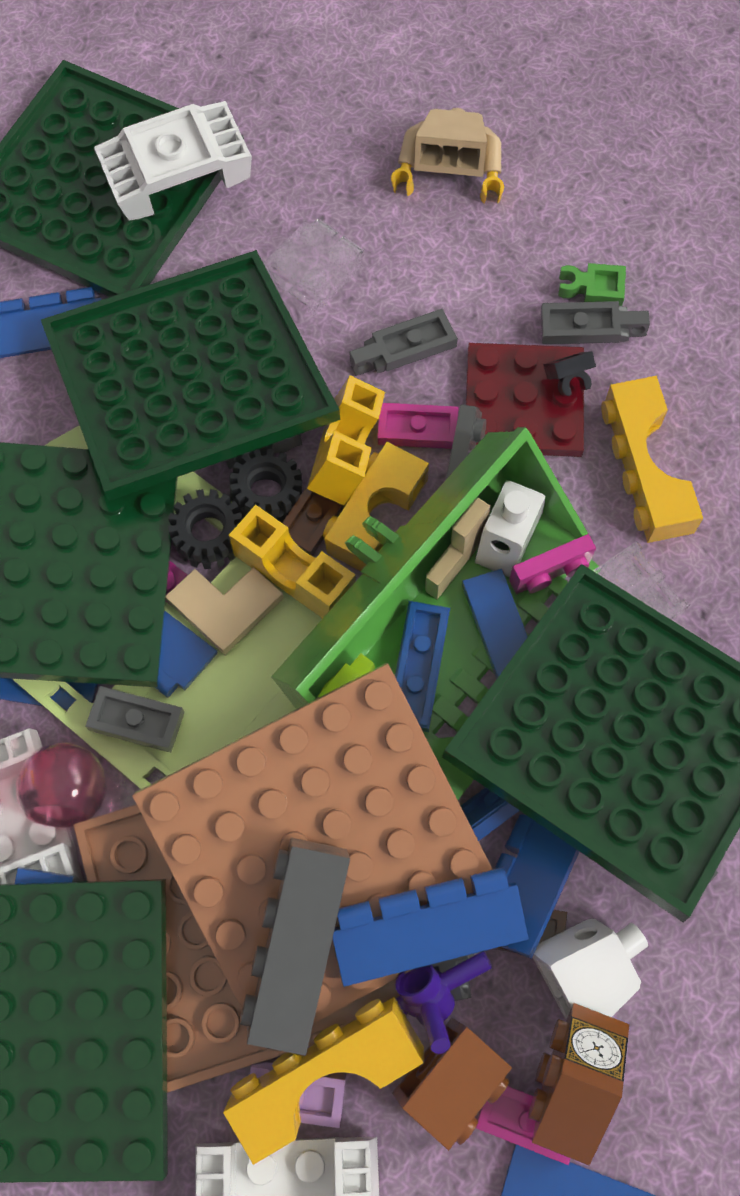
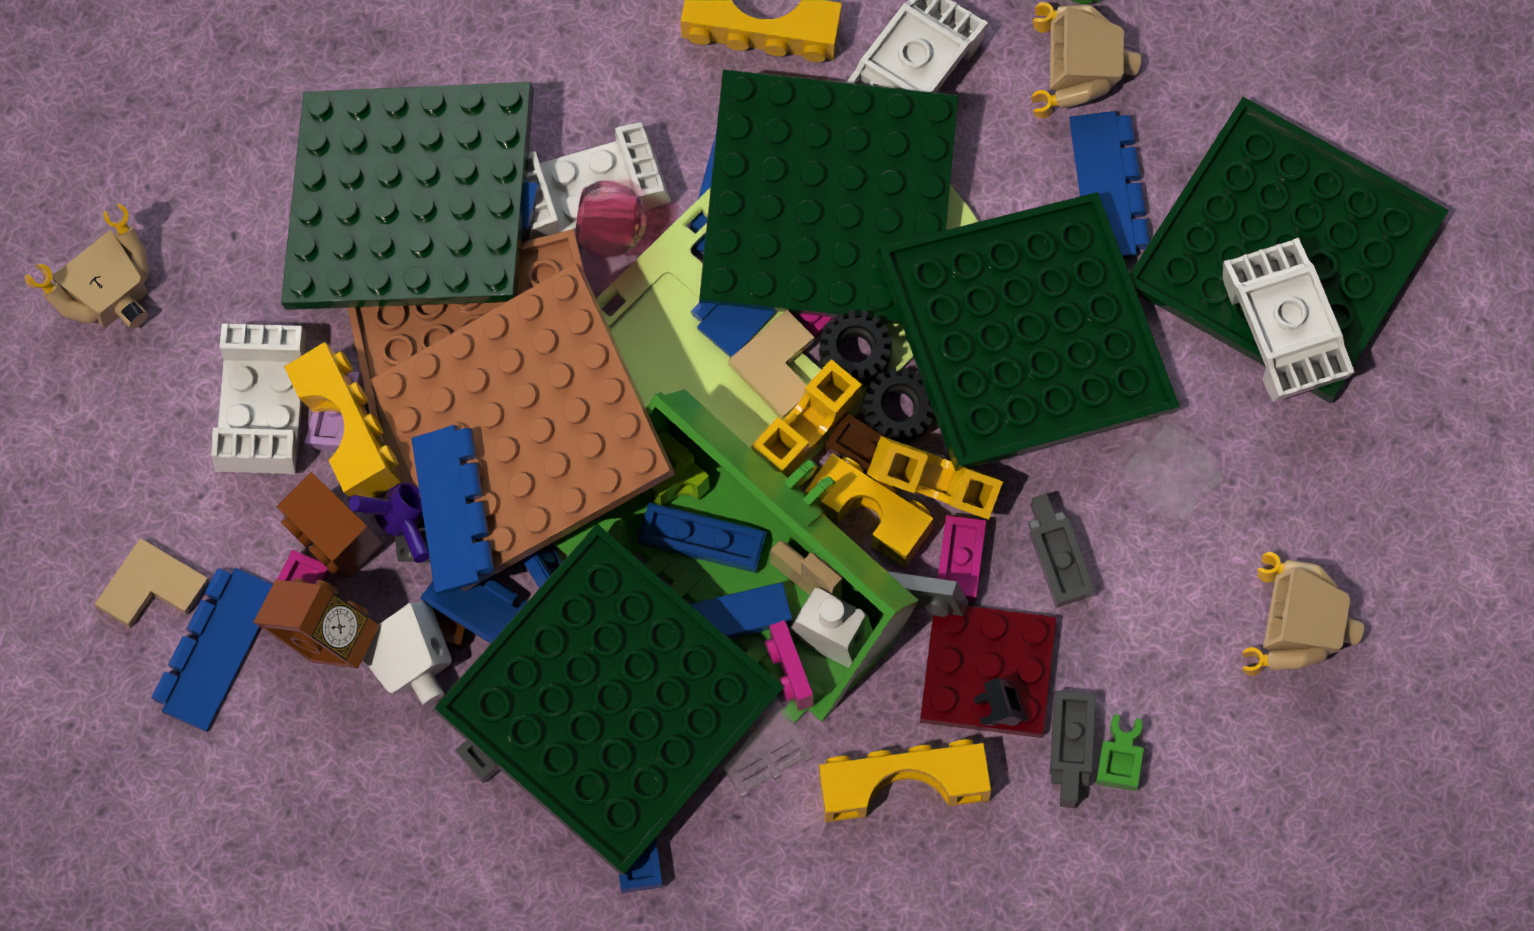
camera: 90 degrees right, 0 degrees up
(135, 719) = (667, 282): dark grey plate -> none
(296, 947) = (446, 394): dark grey brick -> none

